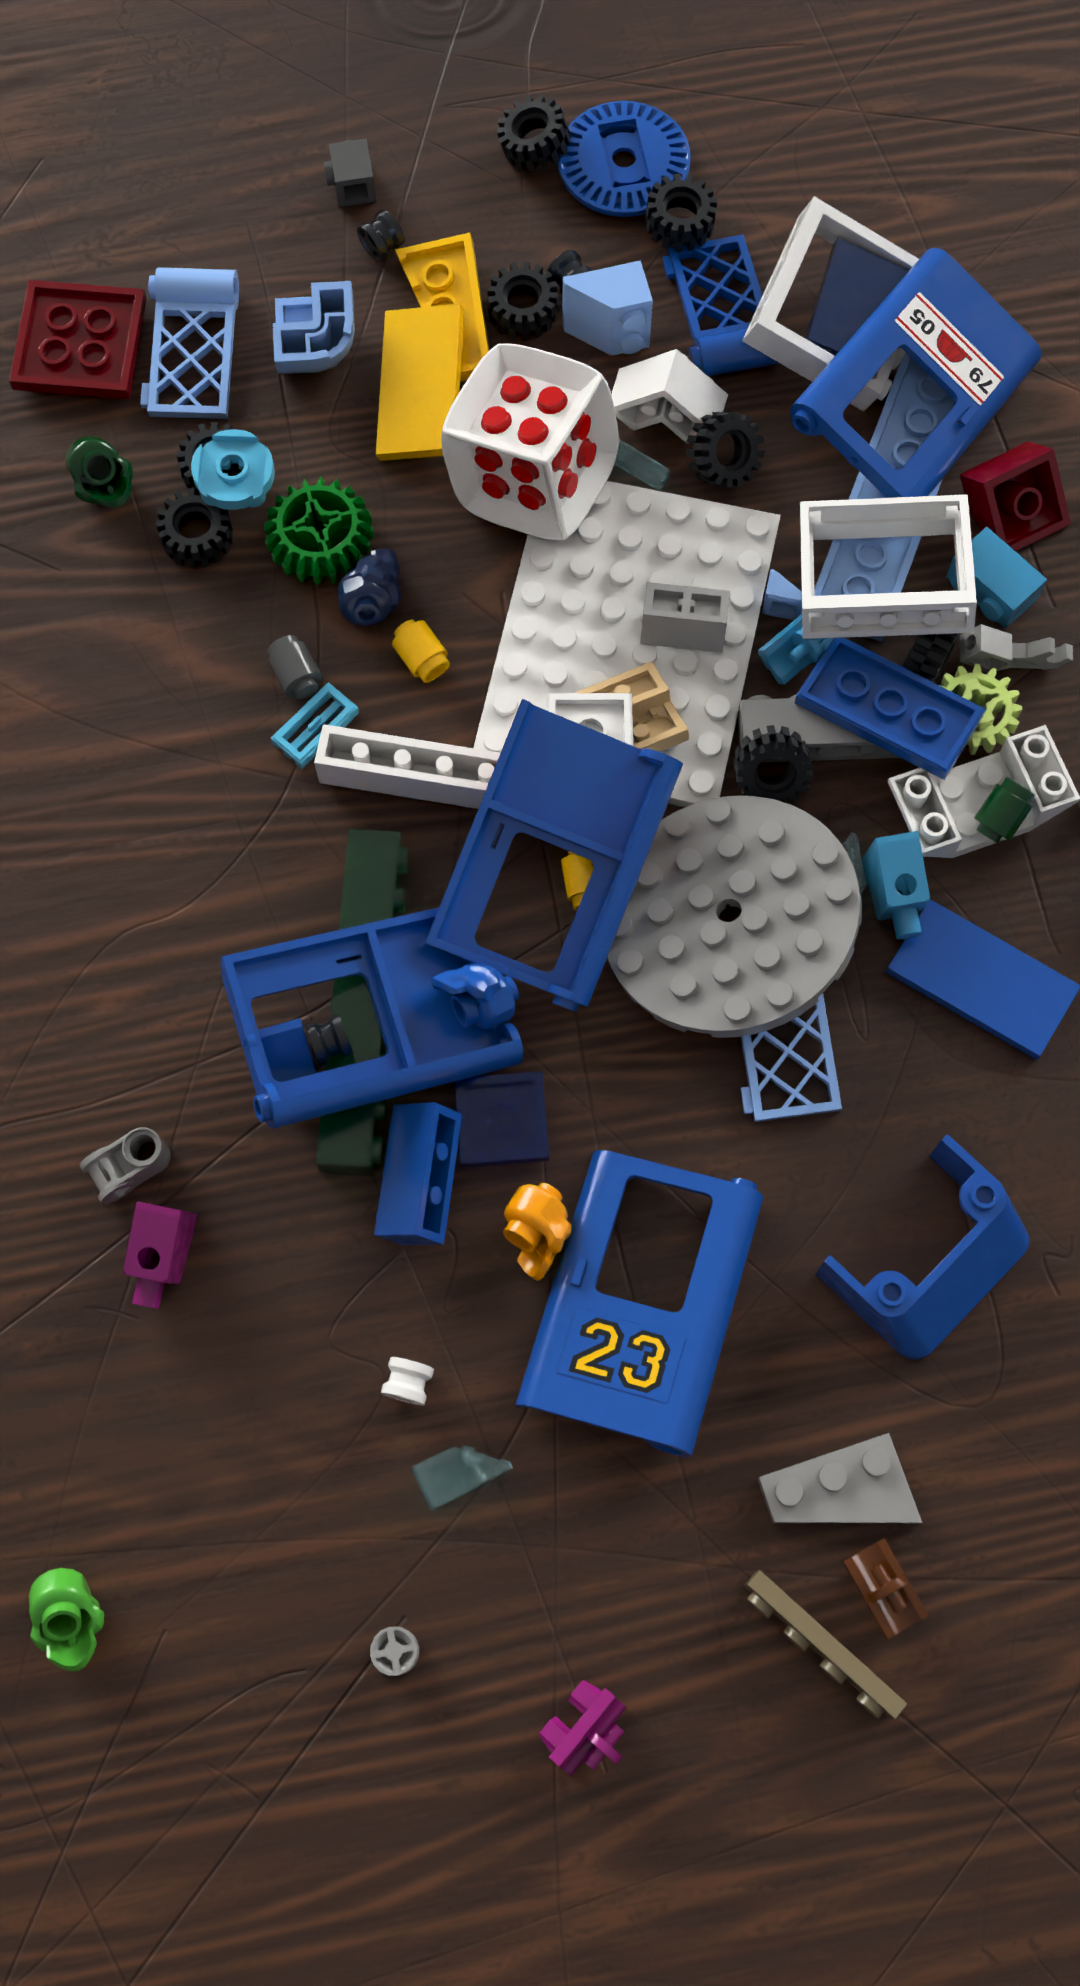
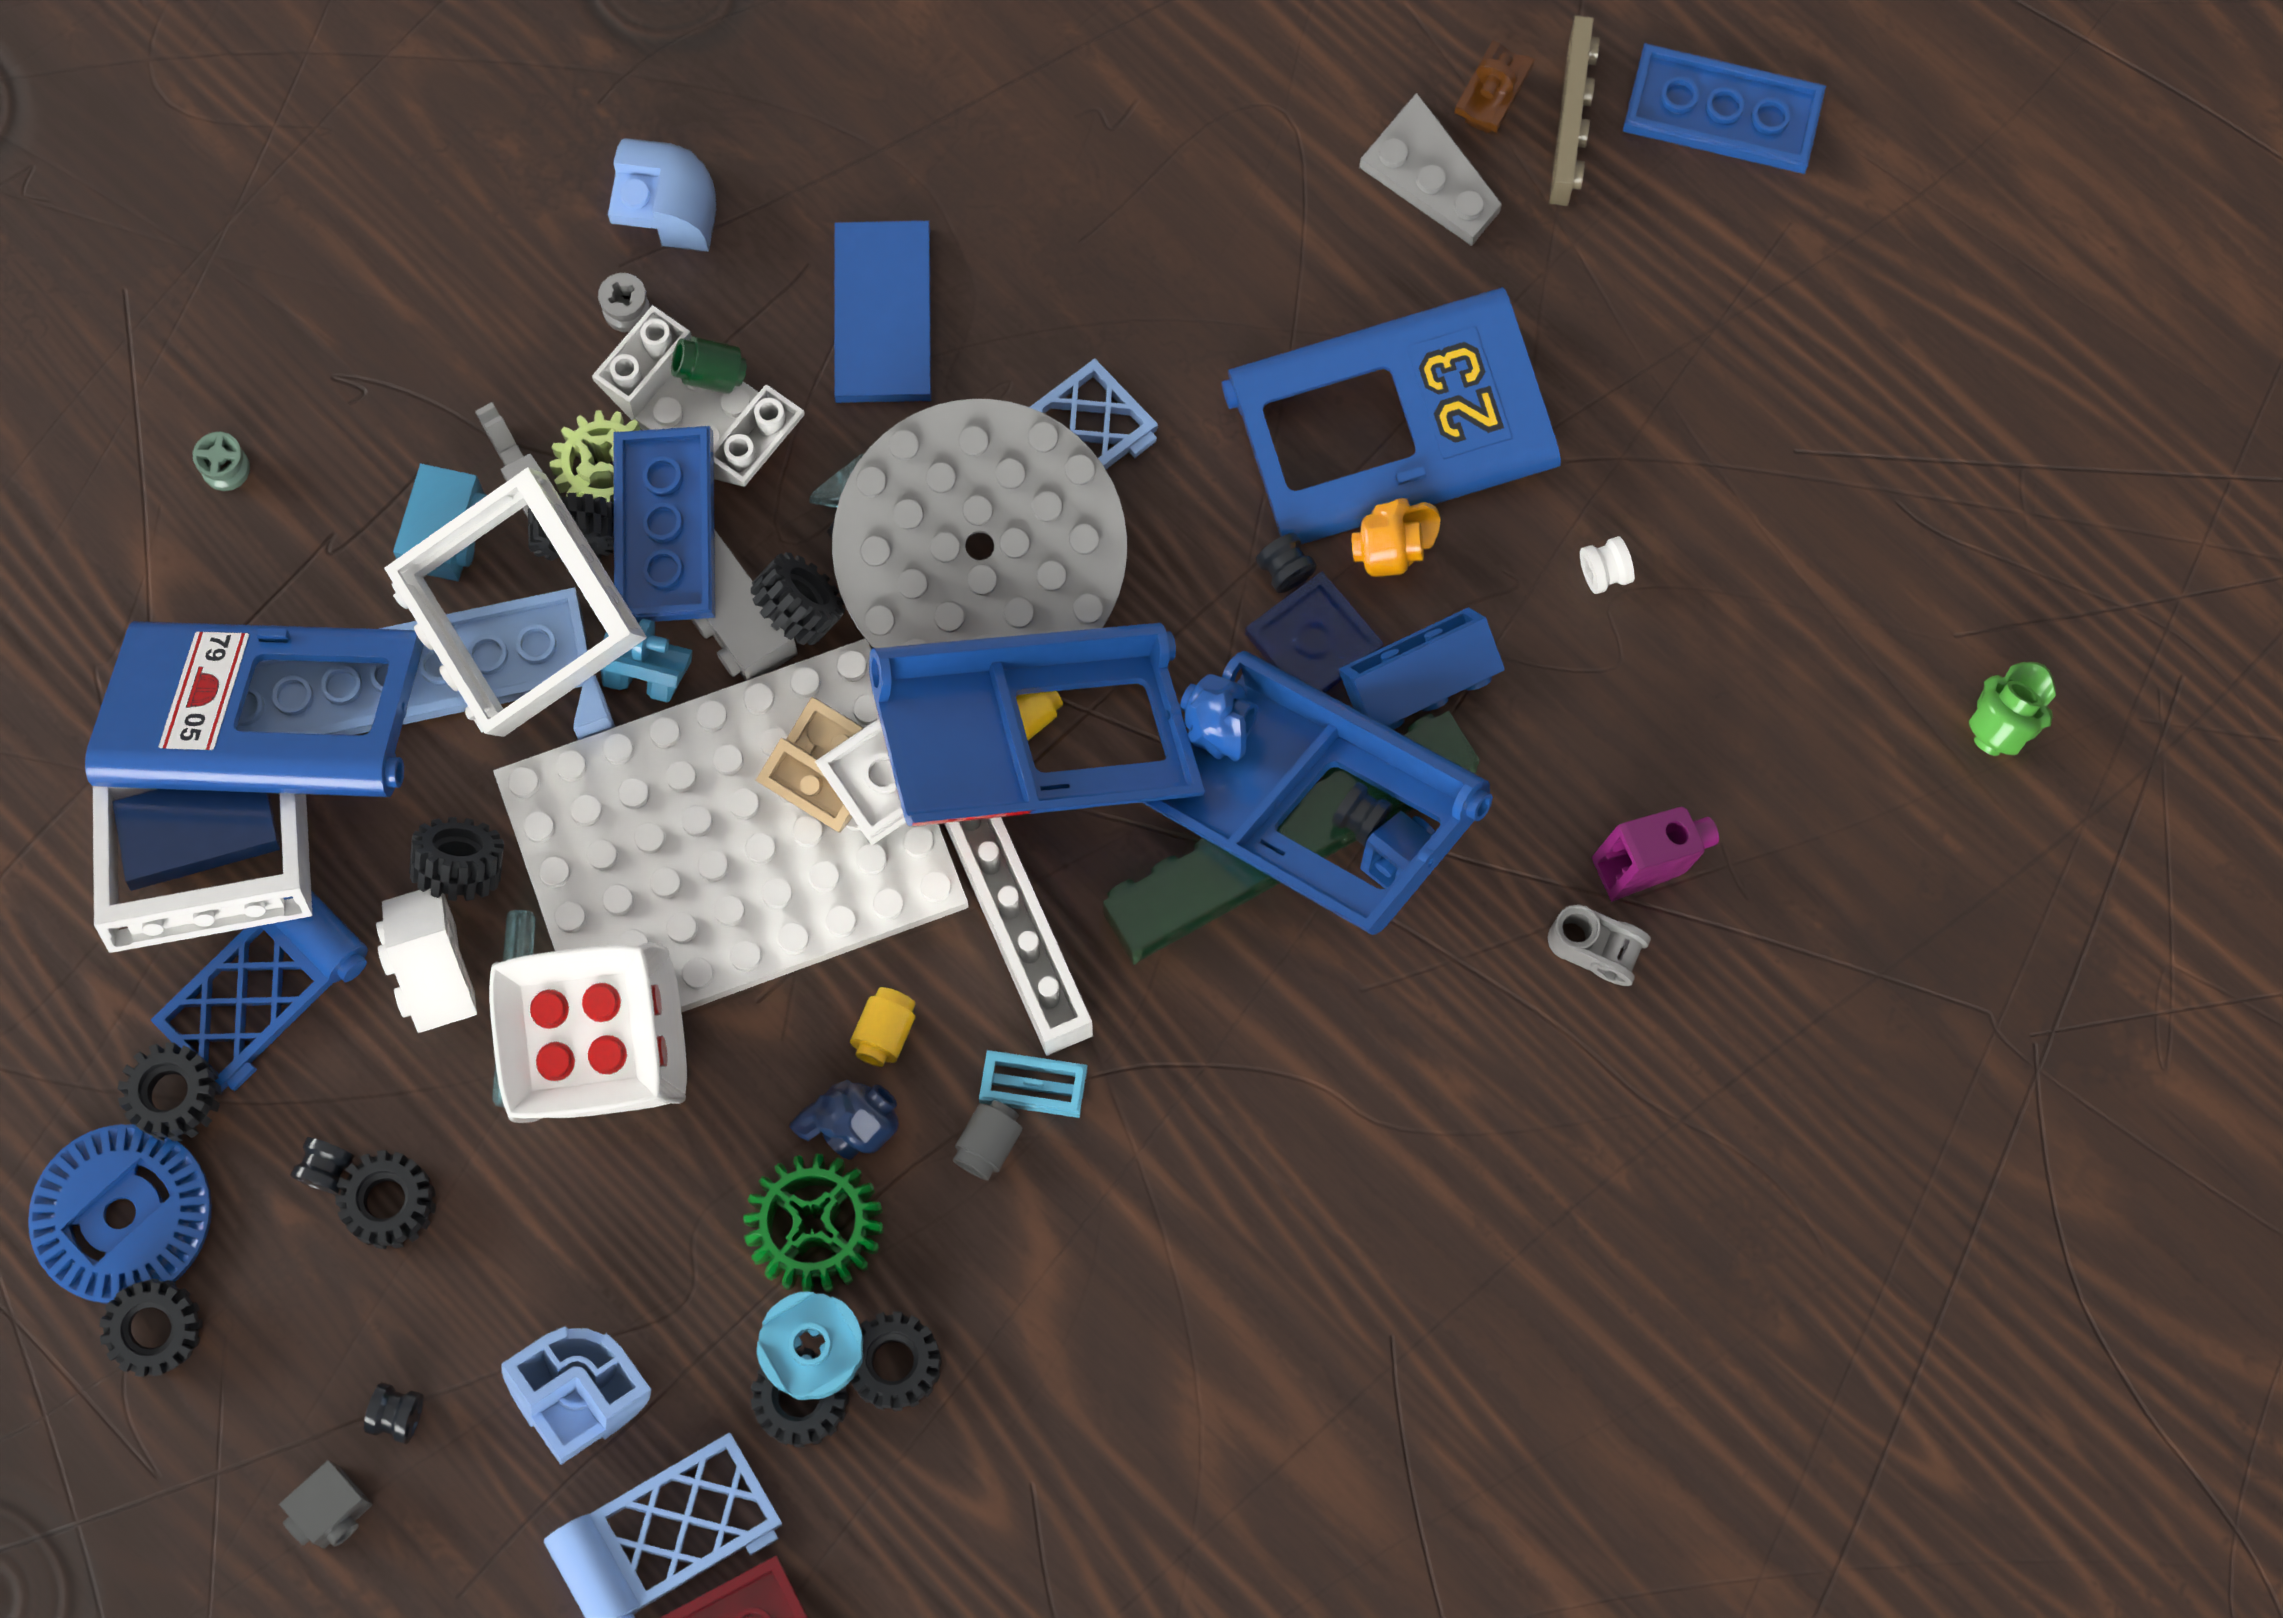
camera: 125 degrees left, 0 degrees up
(99, 472) = (899, 1504): dark green head -> none
(387, 1651) = (1826, 422): light grey wheel -> none
(418, 379) = (562, 1237): yellow tile -> none
(445, 275) = (425, 1286): yellow wing -> none
(456, 1474) = (1651, 482): clear light blue slope -> none
(574, 1137) = (1286, 563): none -> black wheel
(592, 1734) = (1796, 251): magenta hips -> none
(609, 308) = (350, 1072): light blue slope -> none
(685, 617) = (686, 773): light grey hinge -> none
(747, 1791) = (1724, 108): none -> blue tile
(897, 866) = (841, 423): dark azure torso -> none
(922, 1316) = (1244, 186): blue windscreen -> none
(1018, 495) = (327, 555): dark red slope -> none

